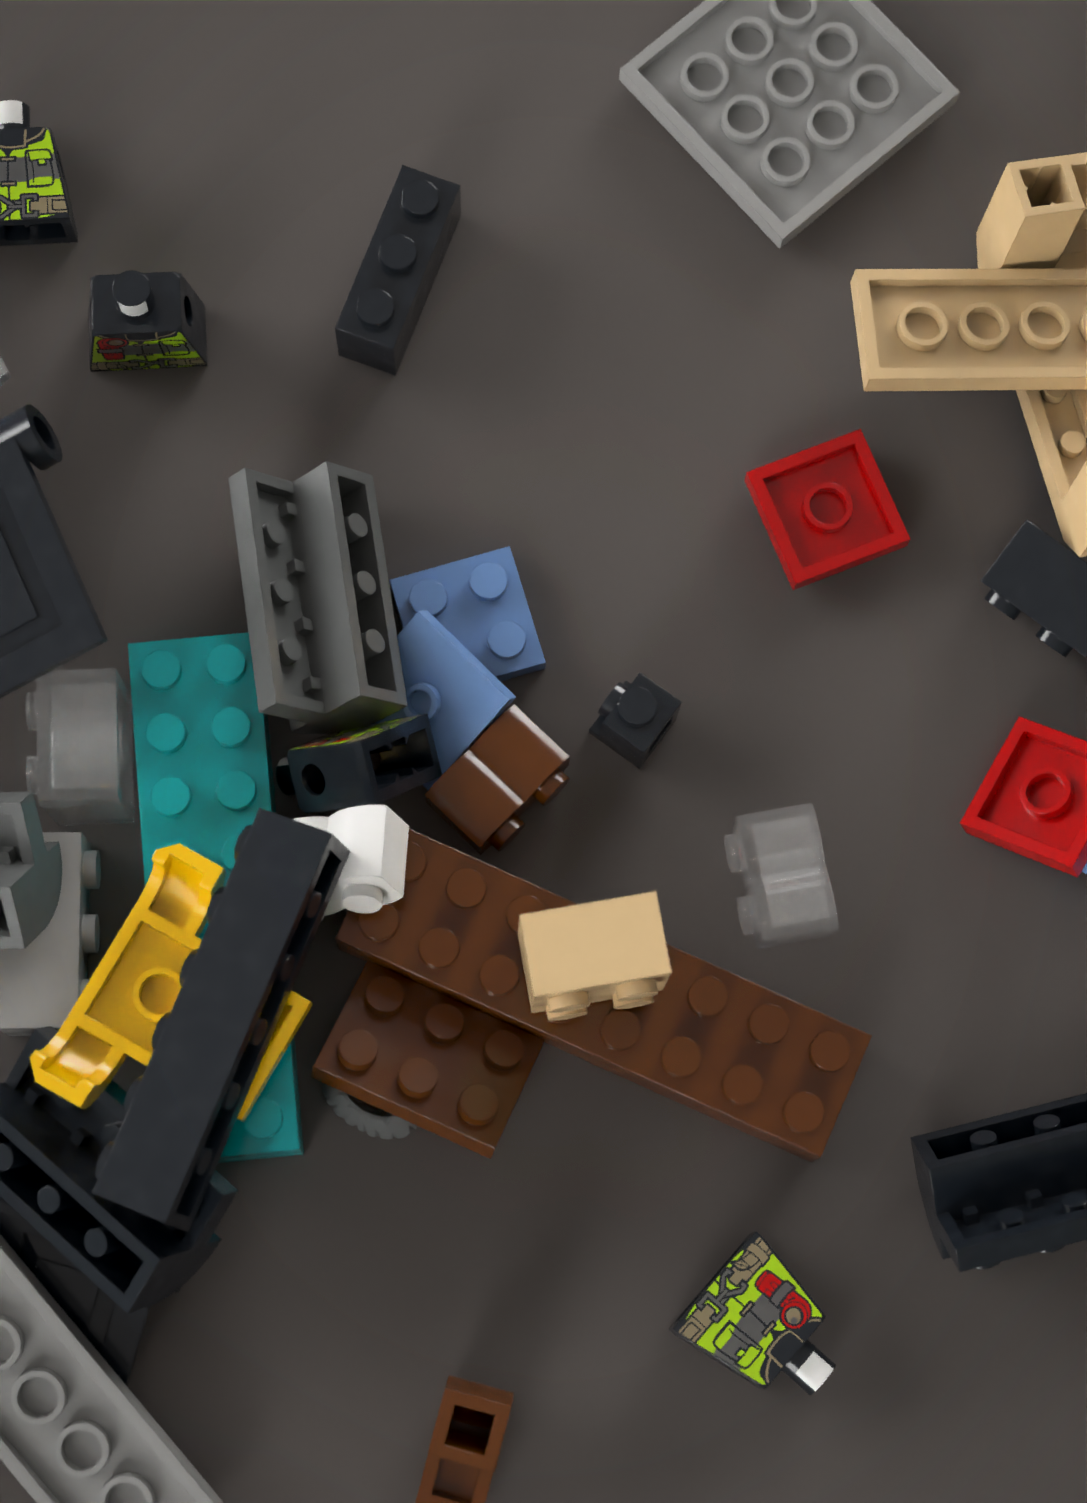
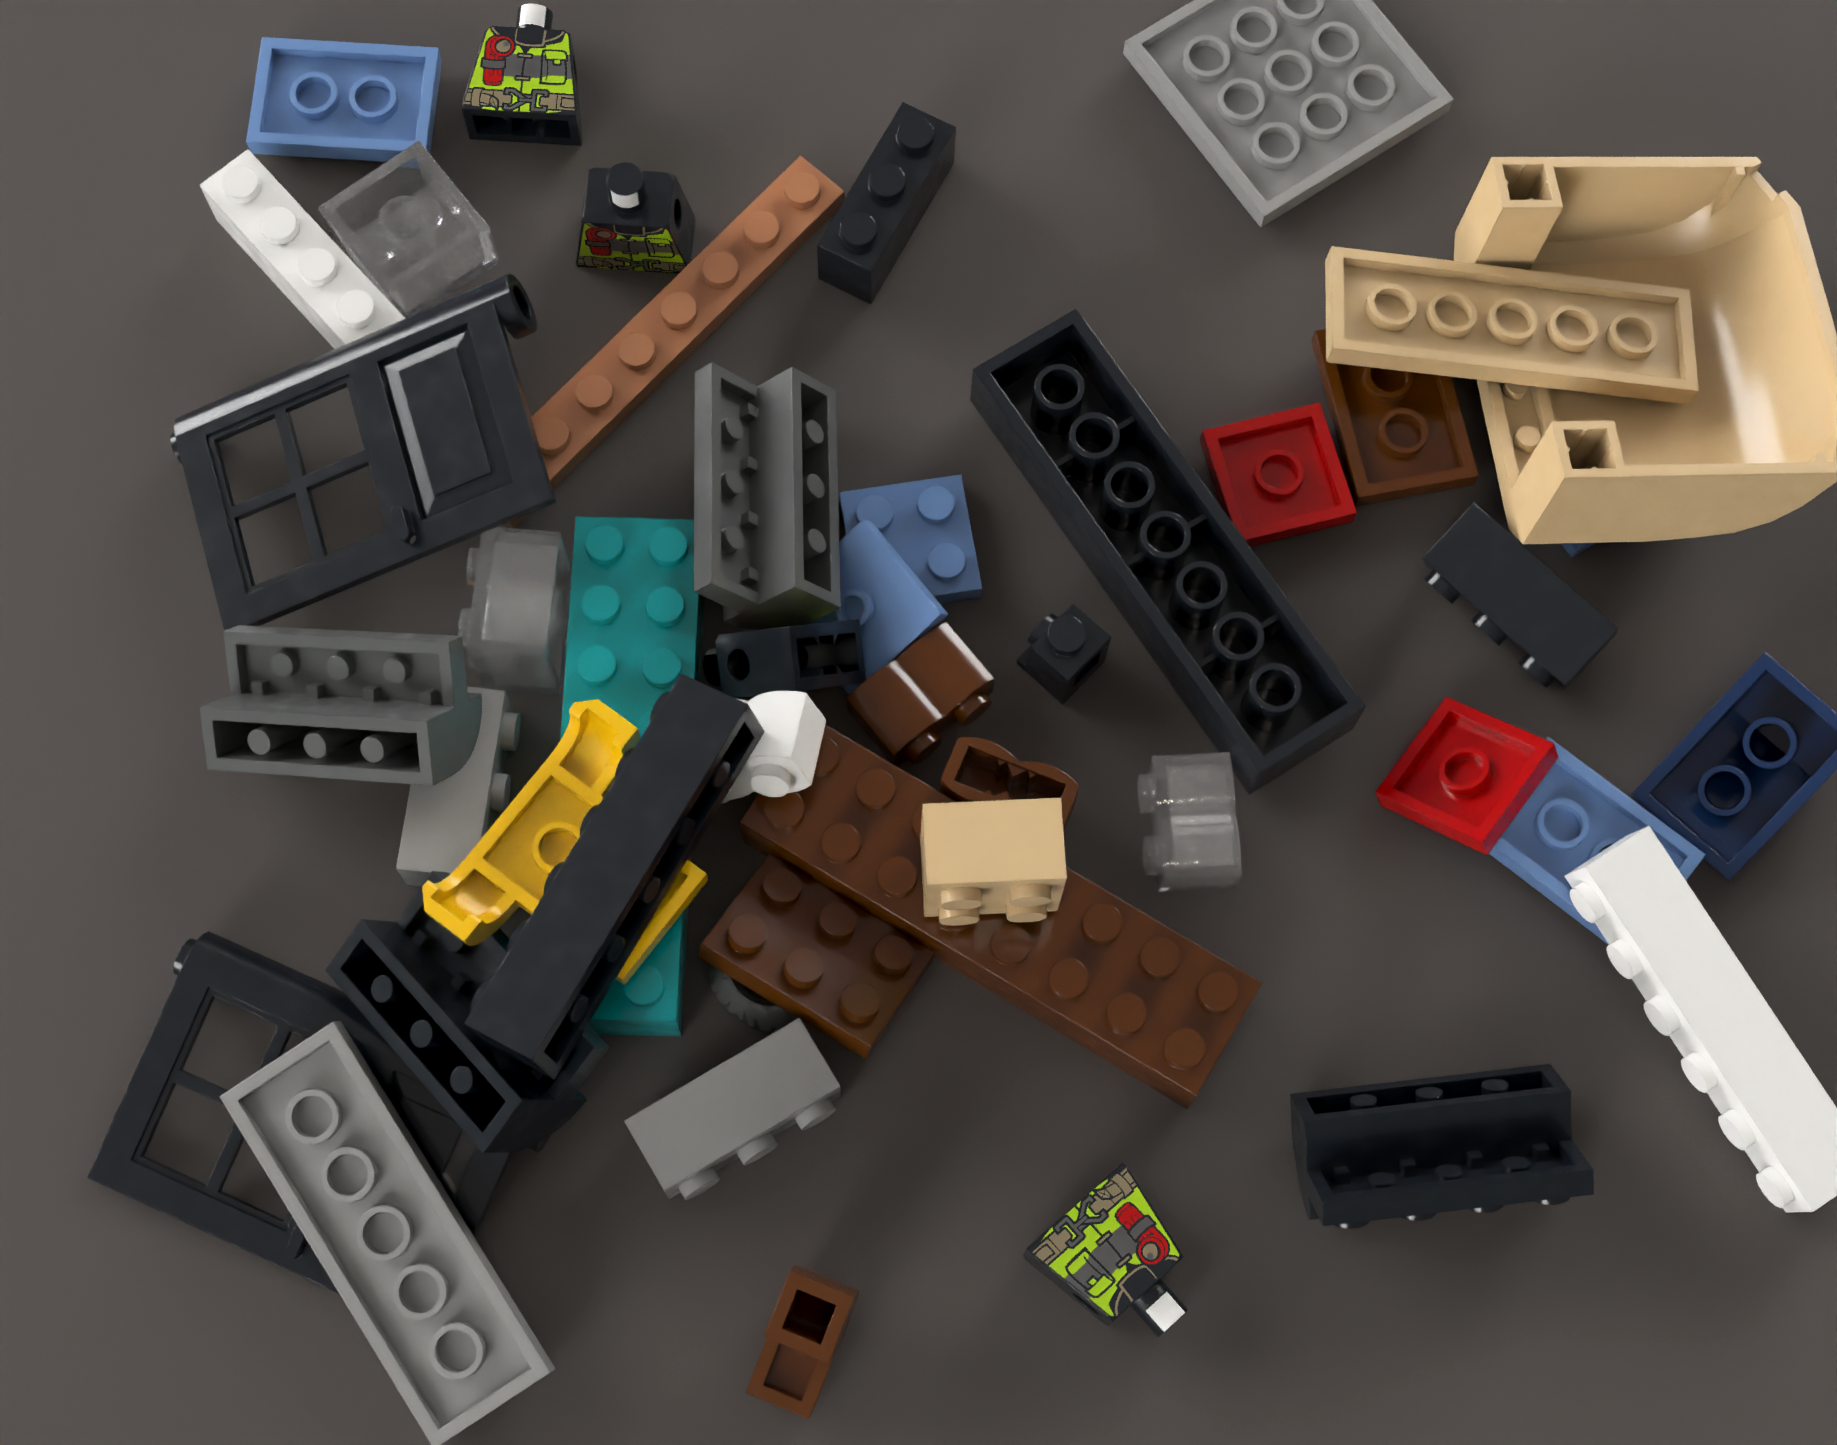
camera: 10 degrees right, 5 degrees down
(205, 413) = (682, 317): none -> nougat plate
(368, 1227) = (735, 1111): none -> light grey brick
(586, 869) = (990, 773): none -> reddish brown brick
(722, 601) = (1164, 551): none -> black brick
(939, 448) = (1395, 430): none -> reddish brown plate

